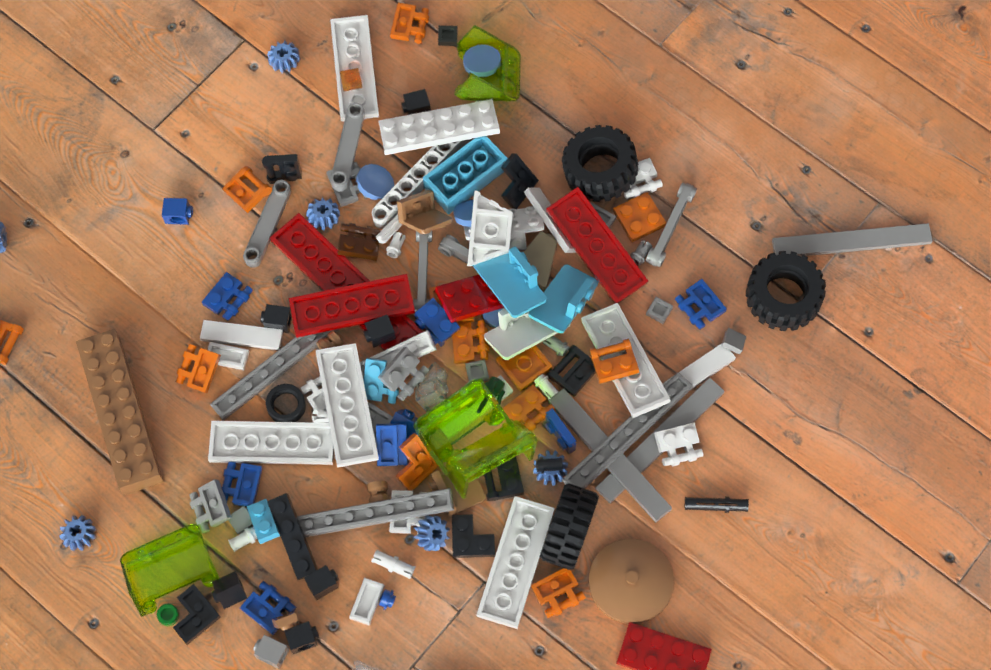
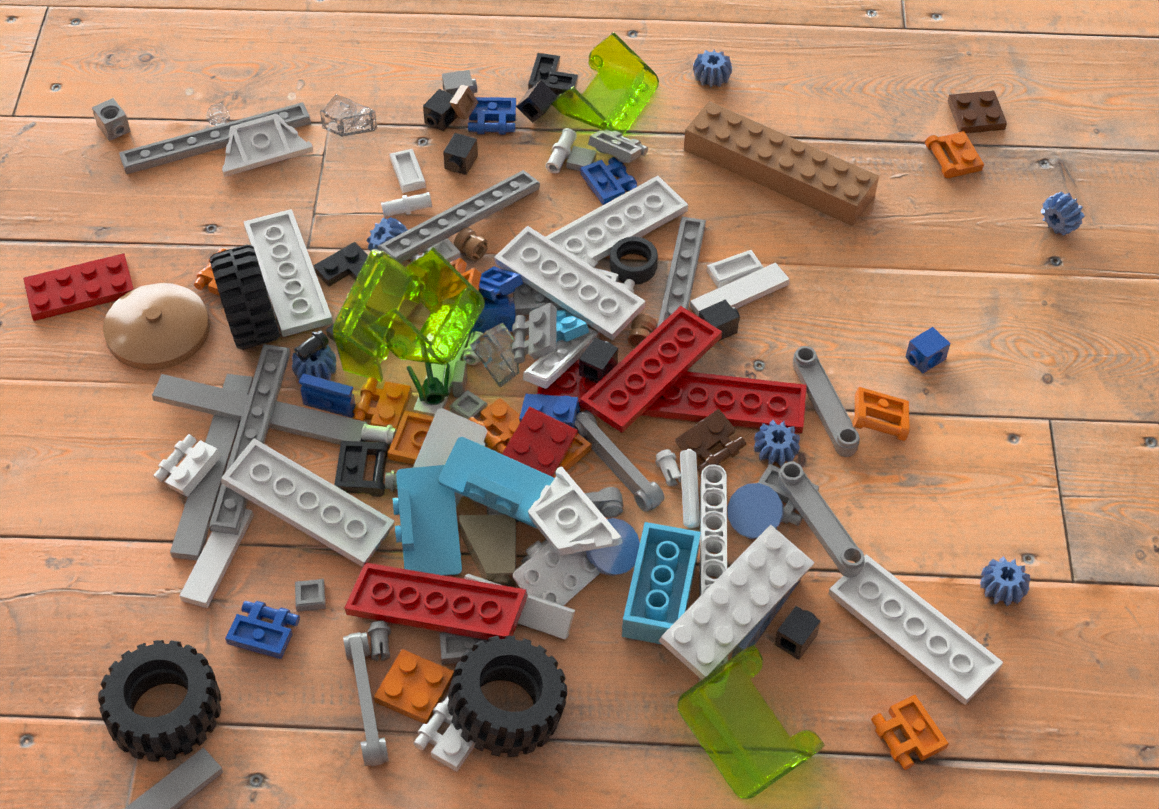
camera: 140 degrees right, 15 degrees down
(167, 614) = (576, 66): green tile -> none
(203, 369) = (747, 236): orange plate -> none
(222, 294) = (798, 314): blue plate -> none
(263, 521) = (557, 158): medium azure plate -> none
(288, 165) = (864, 449): black plate -> none
(292, 536) = (520, 167): black plate -> none
(351, 79) = (899, 600): clear orange plate -> none
(387, 599) = (388, 178): blue plate -> none
(420, 214) = (662, 498): medium nougat bracket -> none
(447, 35) = (847, 748): pearl dark grey plate -> none
(482, 60) = (769, 732): medium blue tile -> none
(521, 180) = (591, 620): black plate -> none
(617, 366) = (309, 477): orange plate -> none
(733, 341) = (193, 610): light grey tile -> none
(742, 504) = (96, 442): black pin -> none

